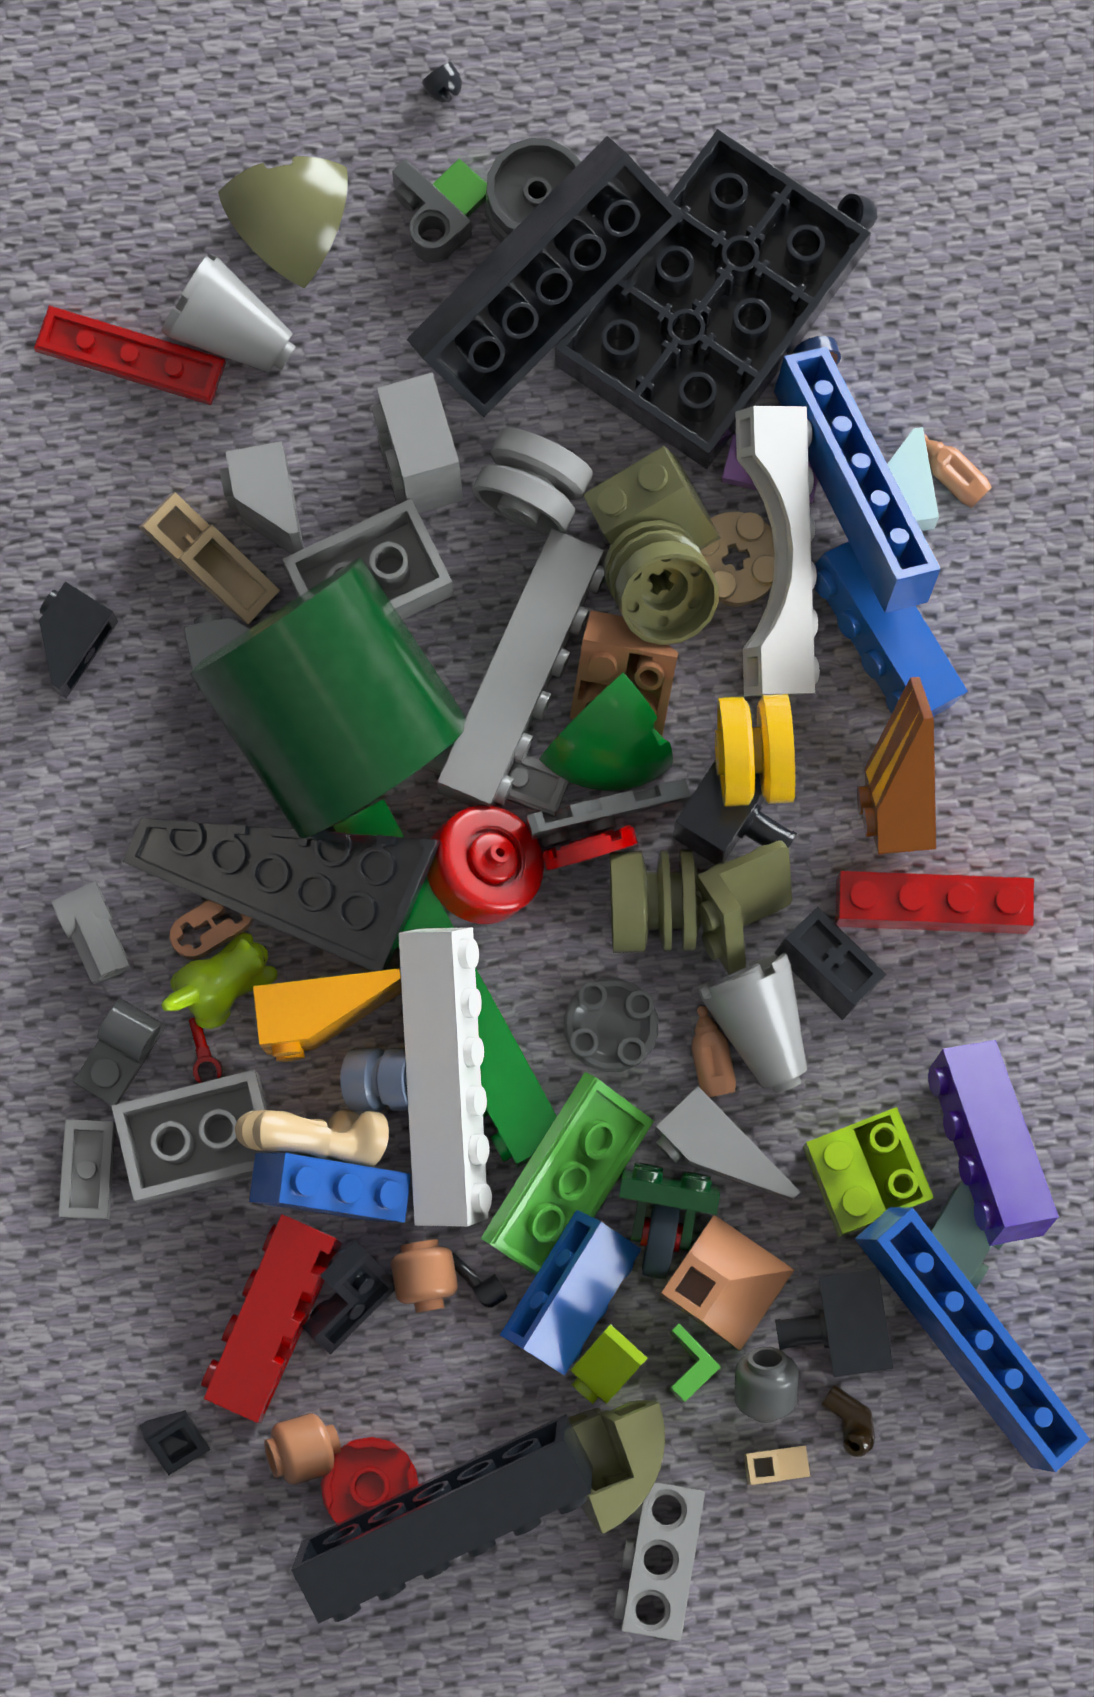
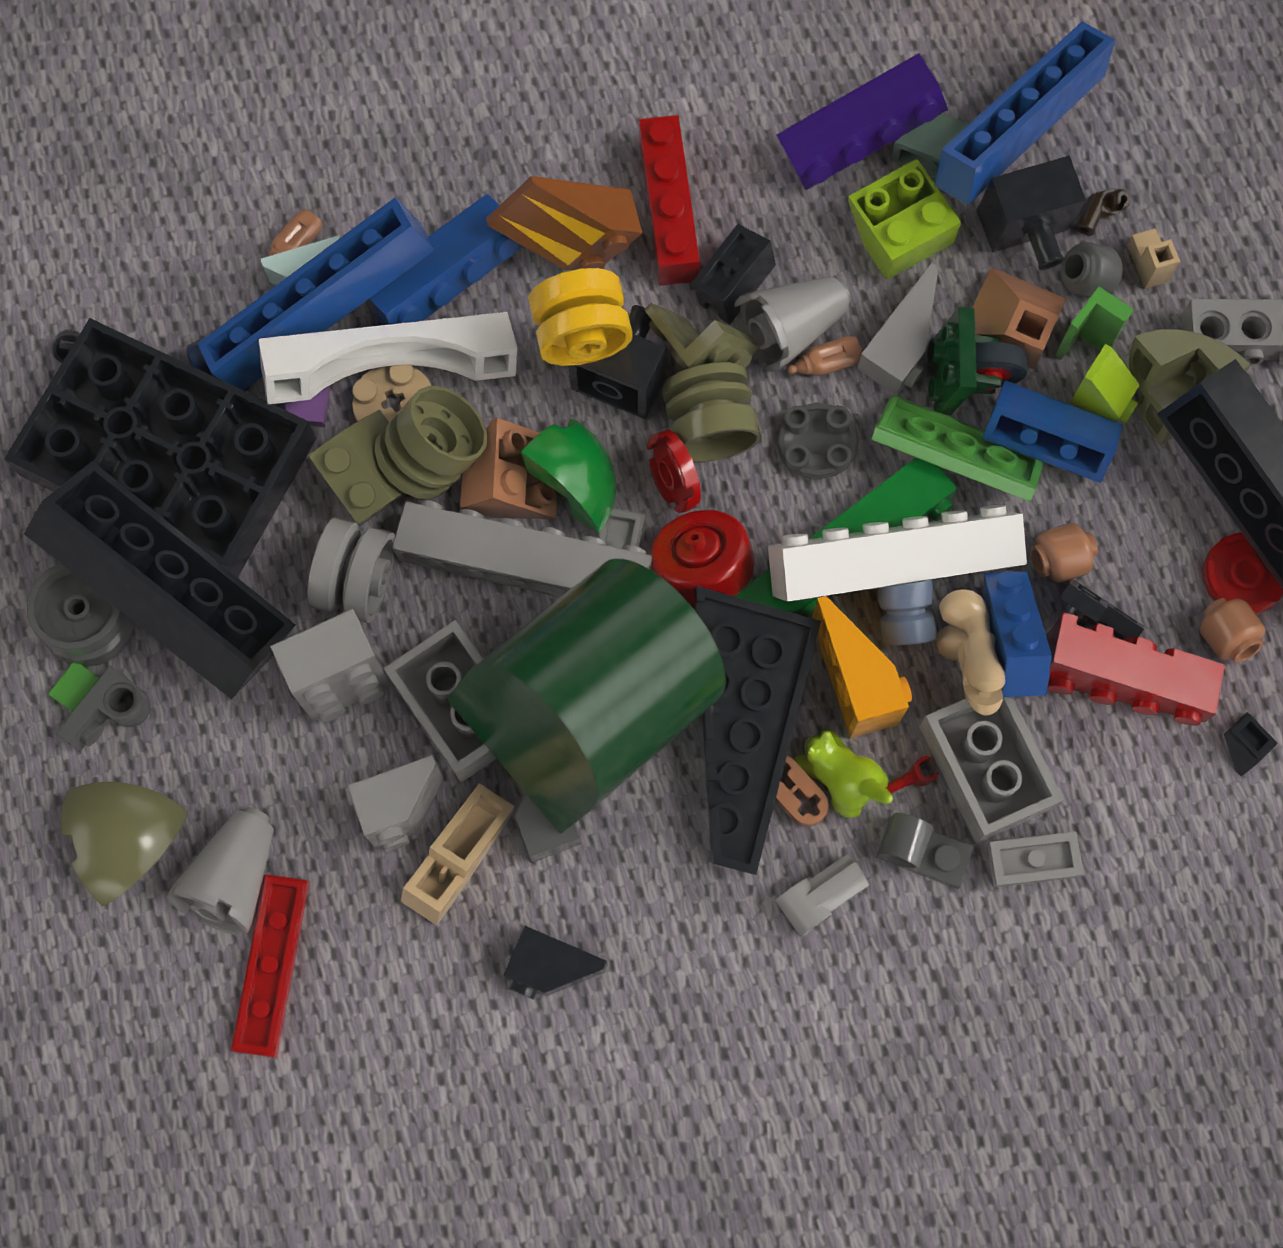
camera: 100 degrees left, 5 degrees down
(488, 1291) = (1063, 503): black hand -> none
(601, 813) = (638, 473): dark grey wing -> none

